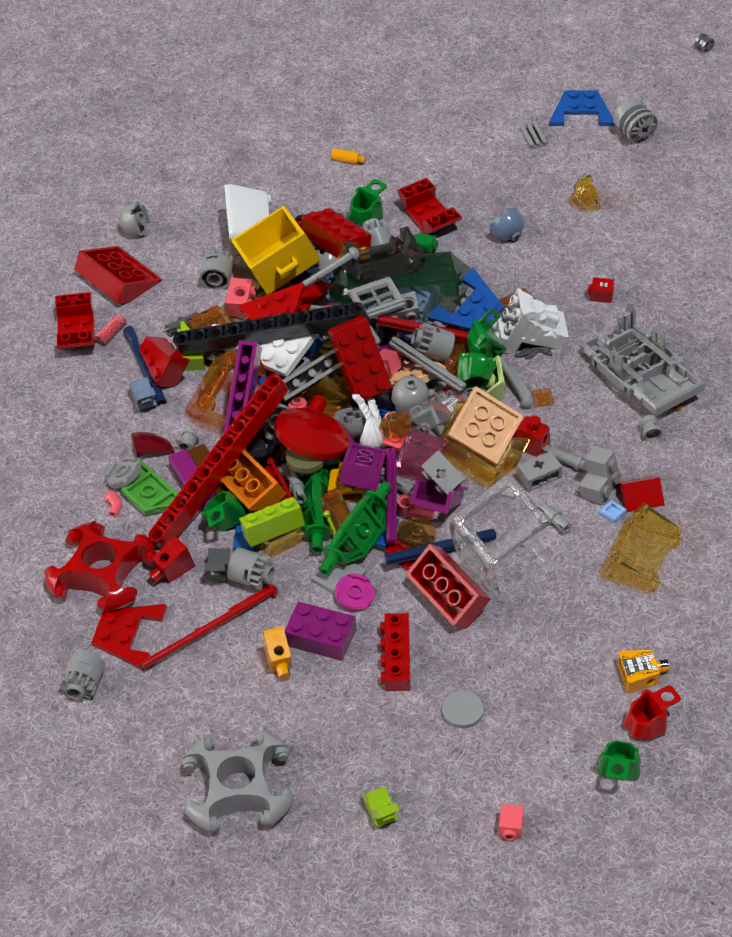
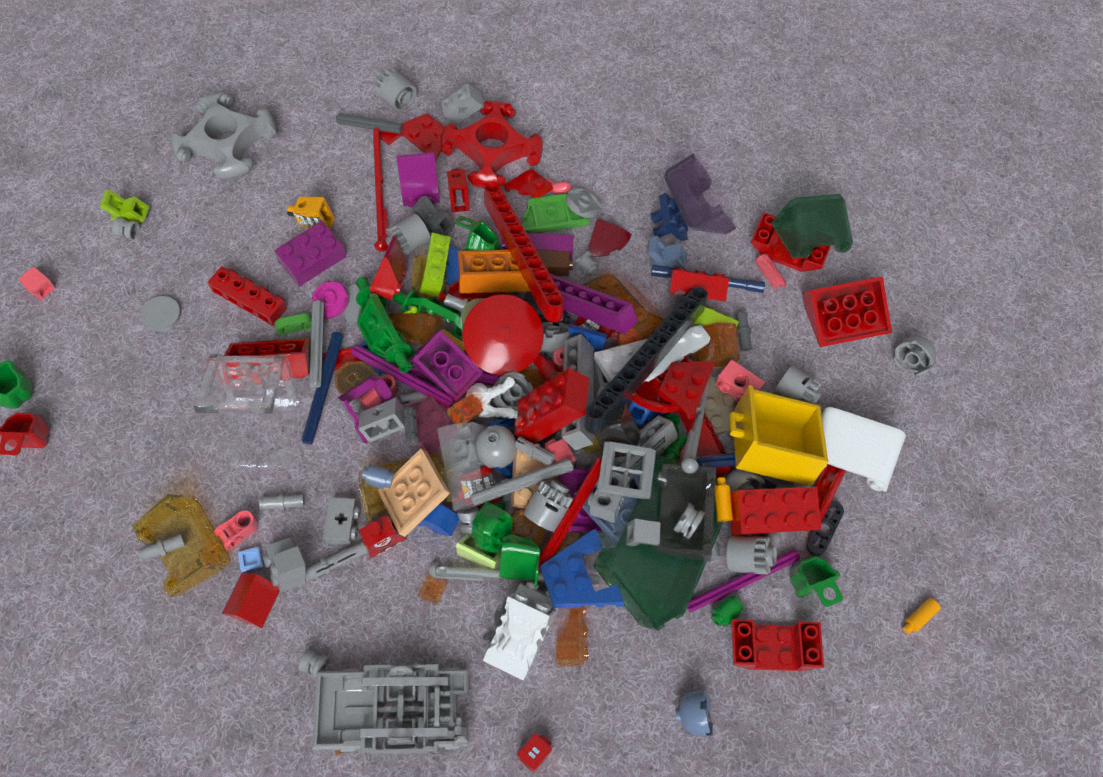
camera: 115 degrees right, 15 degrees up
(61, 305) = (814, 223): none -> clear green windscreen
(69, 606) = (462, 104): none -> light grey brick
(88, 379) = (687, 183): none -> clear purple windscreen
(94, 405) = (672, 219): none -> dark blue plate
(126, 519) = (529, 184): none -> red wing
(137, 677) = (369, 123): none -> dark grey axle
(188, 588) = (417, 178): none -> magenta slope
(303, 546) = (390, 272): none -> red slope
(388, 254) = (689, 521): none -> light grey wheel
(397, 365) = (535, 451): none -> light grey axle
(397, 573) = (316, 345): none -> light grey axle
(397, 602) = (293, 323): none -> bright green beam
(399, 793) = (122, 227): none -> light grey wheel
(419, 268) = (643, 532): none -> light grey panel
(439, 445) = (410, 426): none -> dark grey axle
(490, 452) = (377, 476): none -> sand blue brick
(598, 528) = (235, 530): none -> coral piece
(640, 669) = (72, 461): light orange torso -> none
(653, 563) = (161, 547): none -> light grey pin

